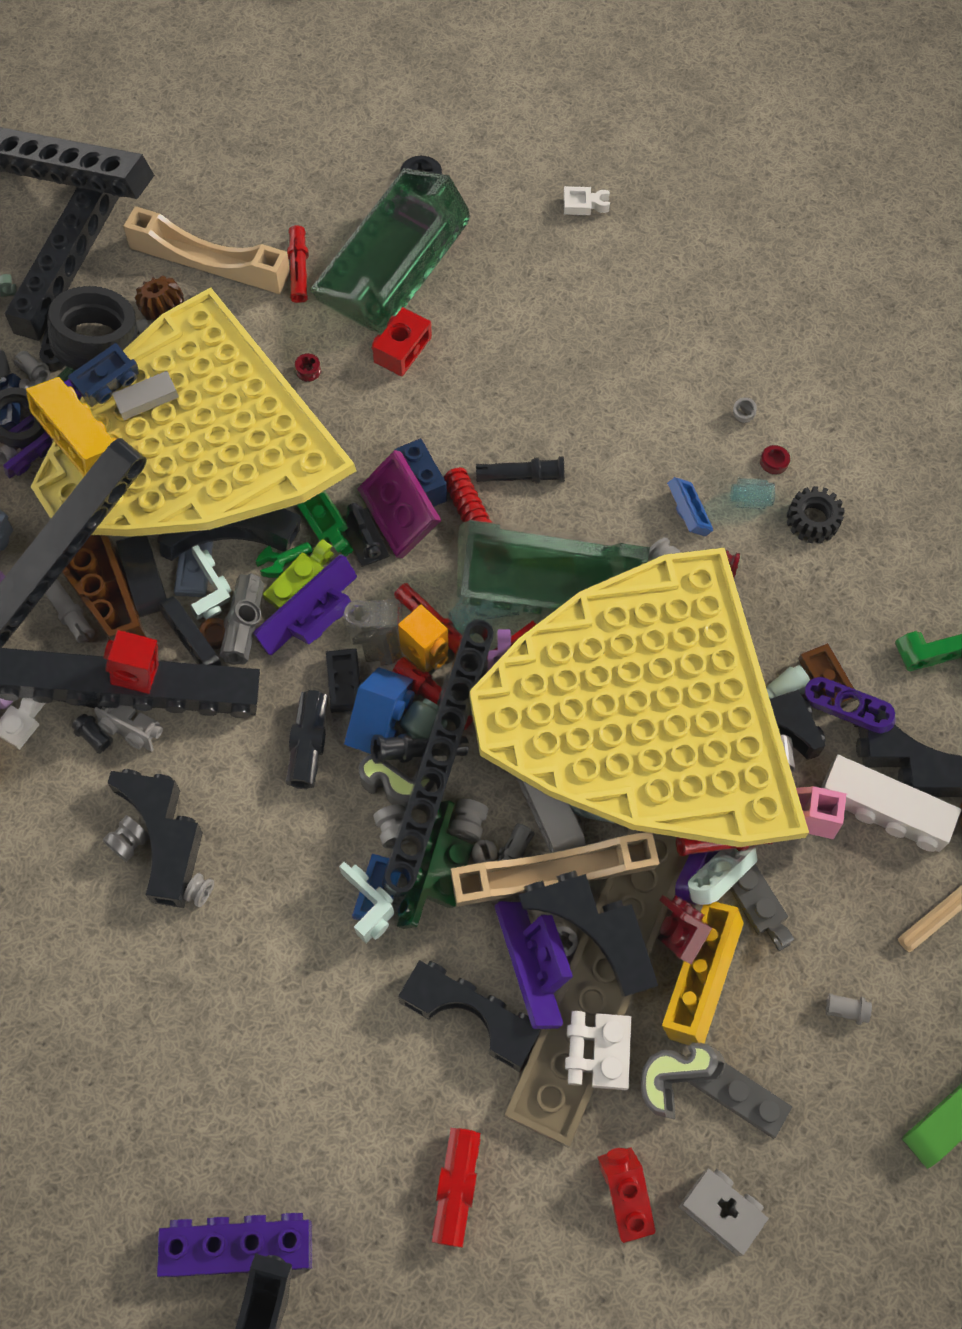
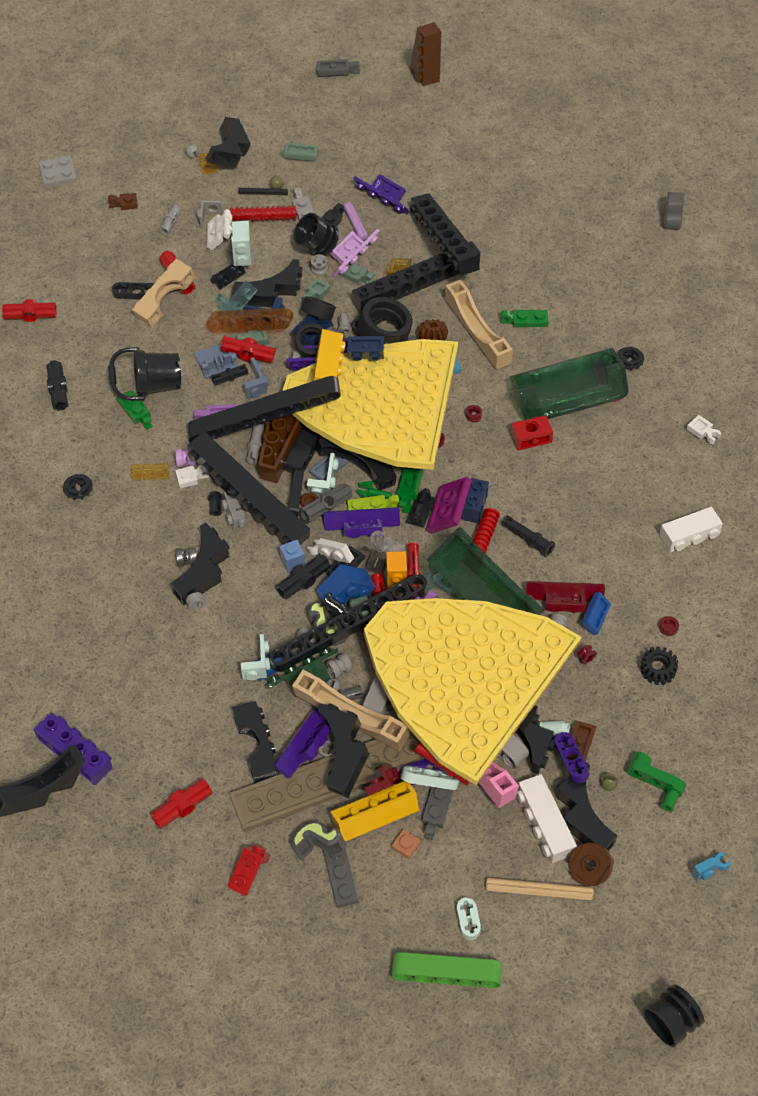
camera: 45 degrees right, 10 degrees down
(31, 243) = (398, 264): none -> clear yellow bracket
(132, 661) = (252, 478): red brick -> none
(145, 395) = (375, 369): light grey tile -> none
(253, 206) = (525, 318): none -> green plate
(268, 723) = (291, 555): none -> medium blue brick
(297, 255) = (523, 356): red pin -> none
(313, 675) = (332, 550): none -> white plate
(610, 1050) = (299, 806): white plate -> none
(637, 513) = (563, 595): none -> dark red bracket
(689, 328) = (691, 529): none -> white brick
(733, 1231) = (277, 899): light grey brick -> none
(746, 405) = (681, 590): light grey hinge -> none
(752, 493) = (636, 631): clear light blue brick -> none
(770, 979) = (406, 844): none -> nougat plate
(849, 1008) = (432, 889): light grey pin -> none
(902, 704) = (608, 784): none -> olive hinge
(933, 1001) = (473, 917): none -> light aqua beam

